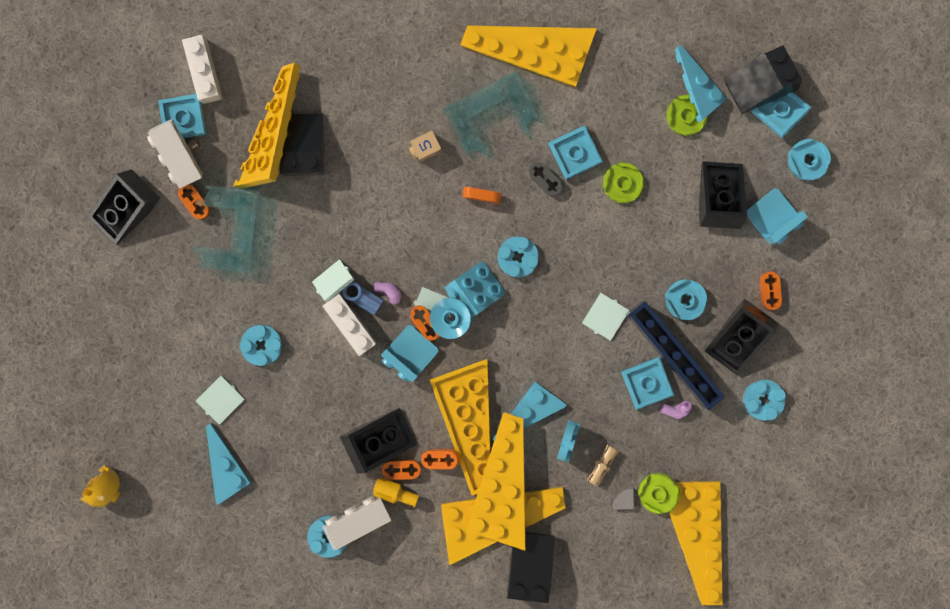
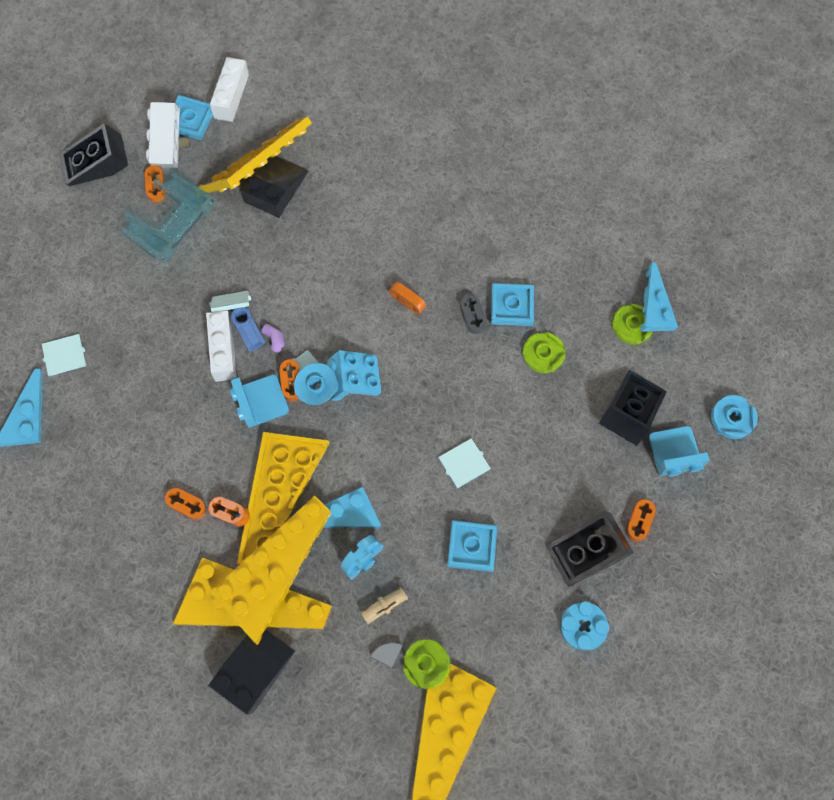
camera: 25 degrees right, 20 degrees down
(260, 333) = (121, 320): medium azure plate -> none
(318, 543) = (62, 532): medium azure plate -> none
(356, 522) = (108, 526): white brick -> none
(378, 441) = (180, 463): black slope -> none
(393, 492) = (164, 520): yellow arm -> none
(425, 146) = (379, 234): tan brick -> none
(507, 88) = (478, 222): clear light blue wedge -> none
(514, 268) = (406, 355): medium azure plate -> none
(542, 50) = (527, 211): yellow wing -> none
(675, 355) = (514, 530): dark blue brick -> none
(678, 411) = (489, 592): lavender arm -> none
(688, 288) = (559, 476): medium azure plate -> none
(763, 80) = (721, 325): black slope -> none
(782, 113) = (726, 360): medium azure plate -> none

